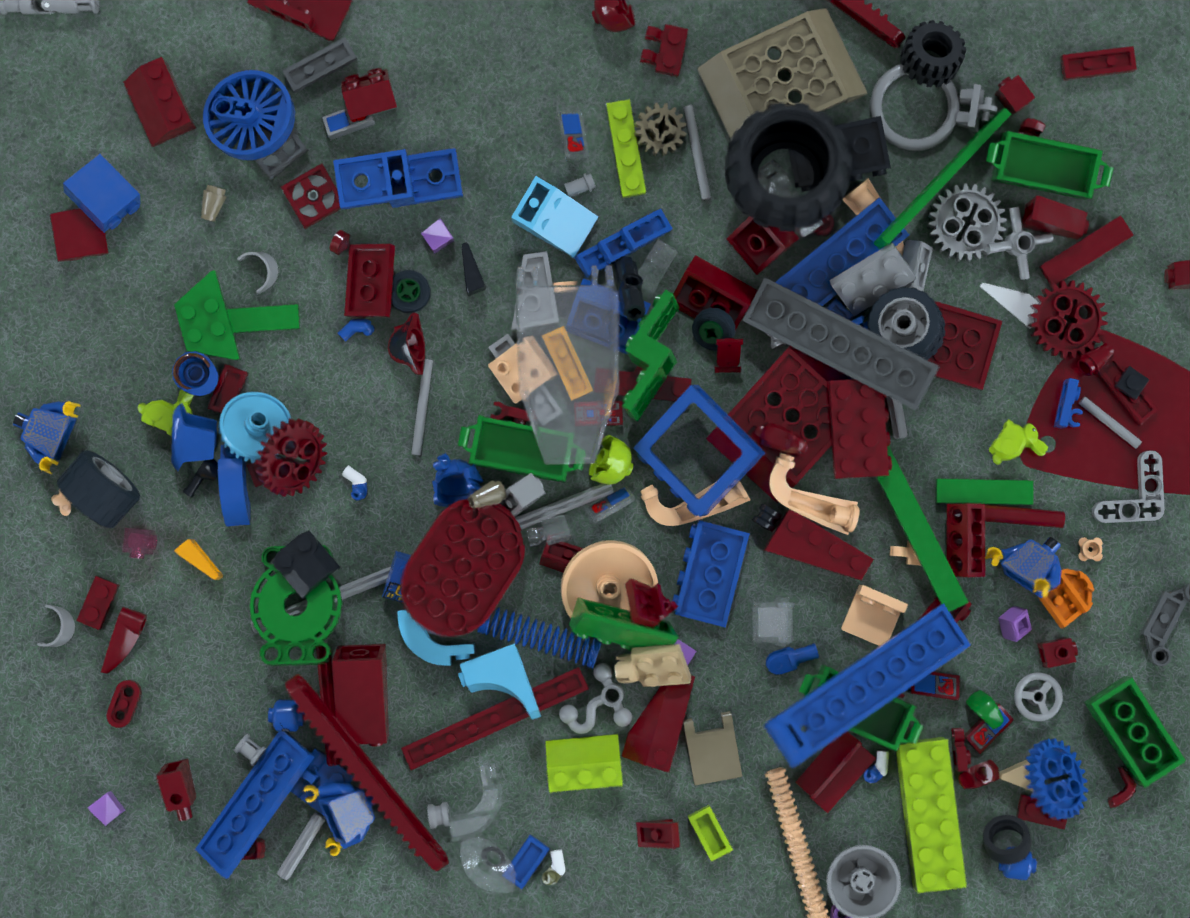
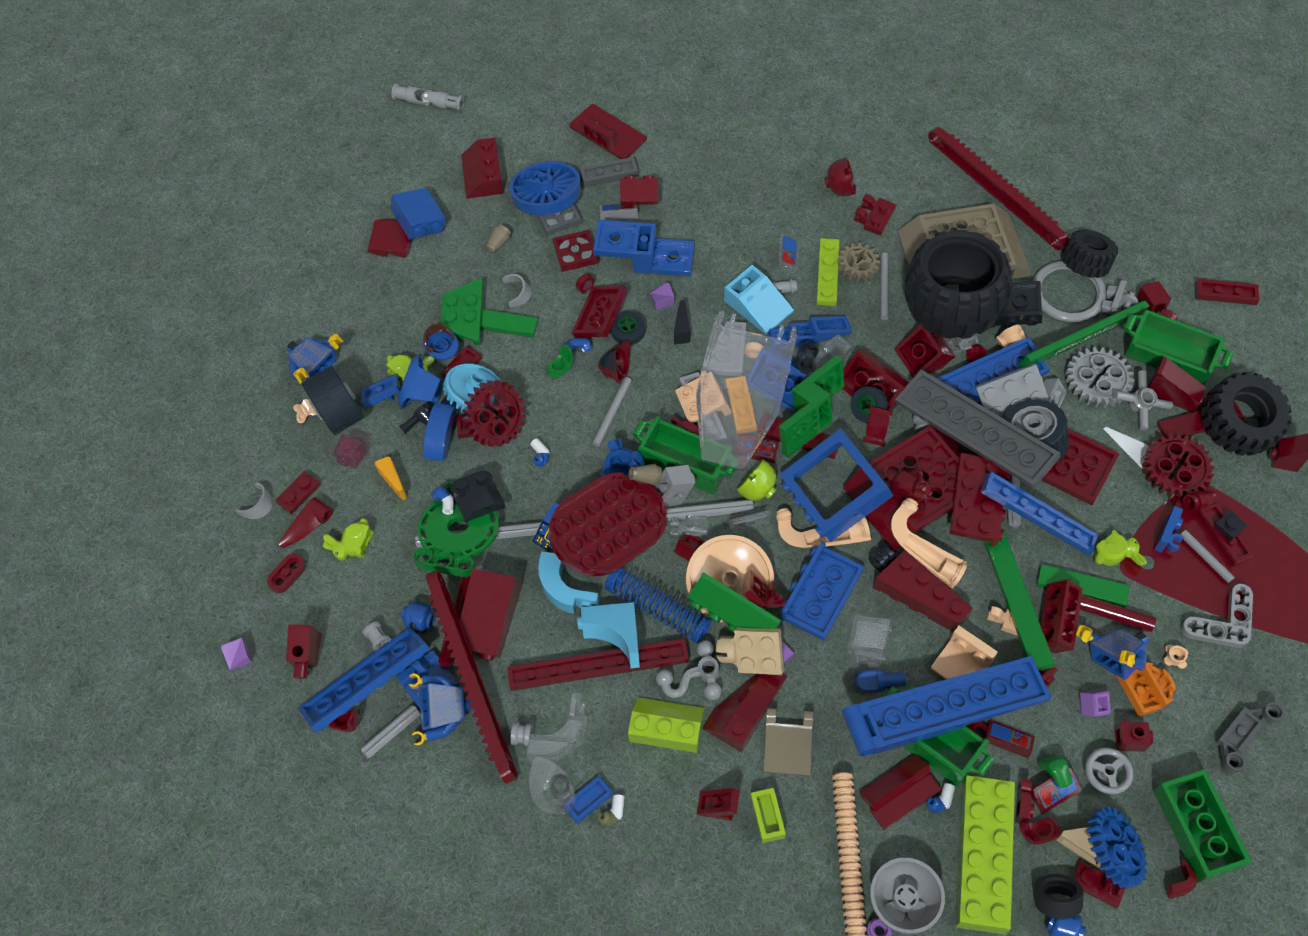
camera: 20 degrees right, 25 degrees down
(146, 453) = (381, 390): none -> blue plate
(184, 648) = (353, 542): none -> lime animal
(271, 574) = (442, 494): none -> arm
(343, 362) = (561, 364): none -> green hair
(925, 429) = (1039, 513): none -> blue plate
(1164, 239) = (1262, 397): none -> black tyre

